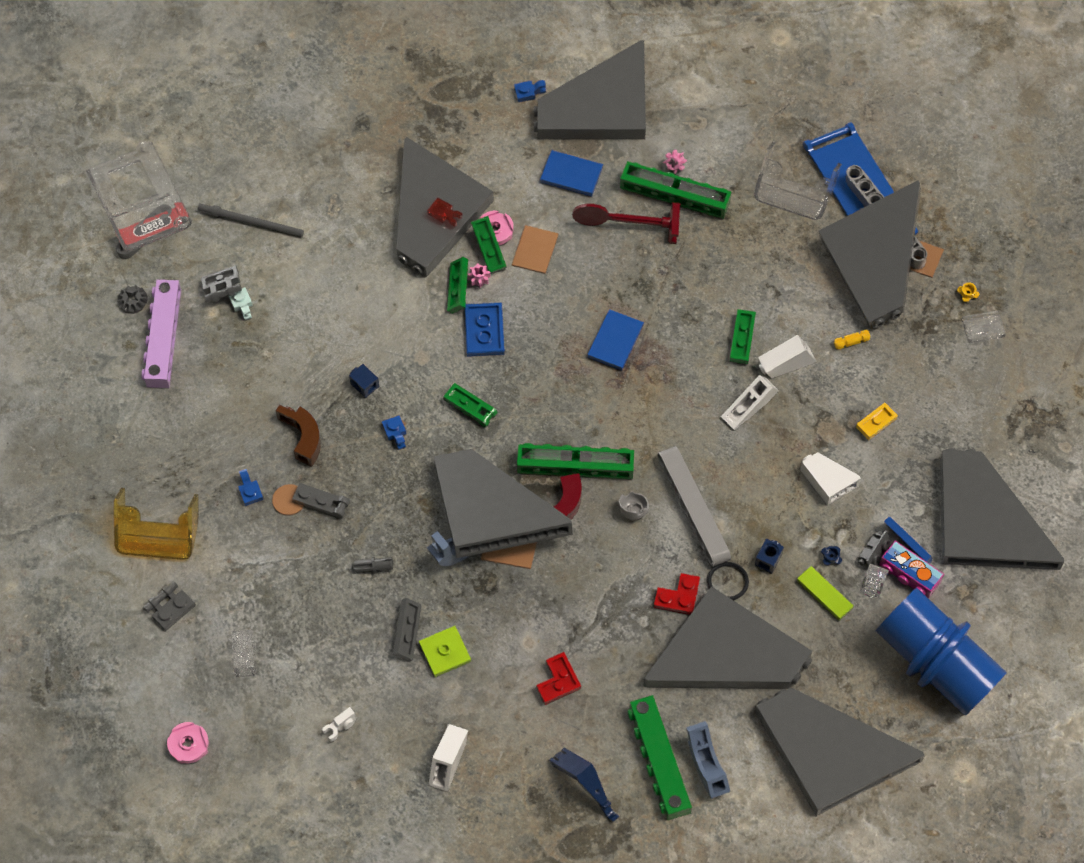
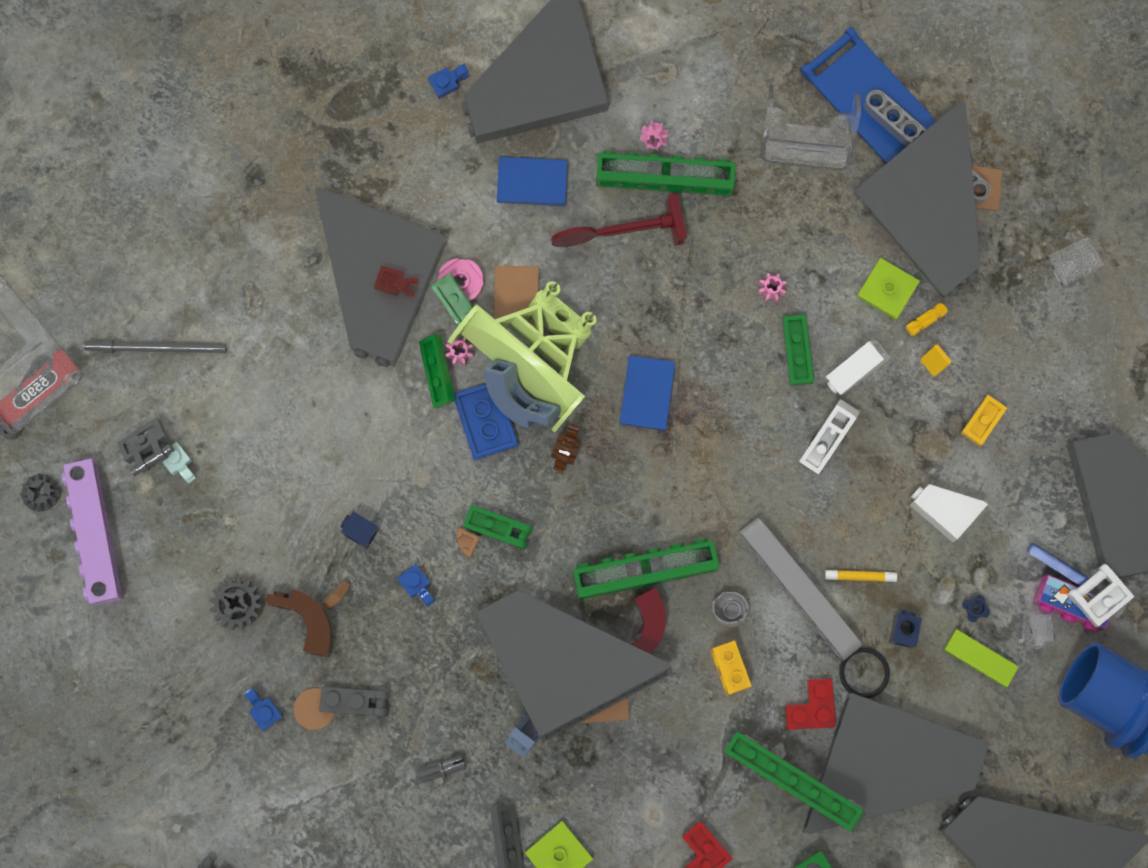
camera: 20 degrees left, 15 degrees up
(154, 538) = (166, 805): clear yellow windscreen -> none
(251, 402) = (231, 611): none -> dark grey gear
(330, 422) = (336, 595): none -> medium nougat tile
(443, 410) = (467, 542): none -> medium nougat tile
(508, 315) = (511, 399): none -> sand blue arch
(529, 287) = (532, 372): none -> yellowish green piece
(539, 359) = (566, 449): none -> reddish brown gear
(621, 548) = (730, 668): none -> yellow brick
(646, 636) = (795, 782): none -> green piece
(735, 287) = (774, 282): none -> bright pink gear
(746, 510) = (860, 575): none -> yellow bar
(827, 311) = (888, 289): none -> lime plate
(850, 369) = (935, 360): none -> yellow slope
(879, 543) = (1023, 597): dark grey hinge -> none
(935, 568) = (1106, 601): none -> white plate
(970, 287) = (1047, 214): yellow plate -> none

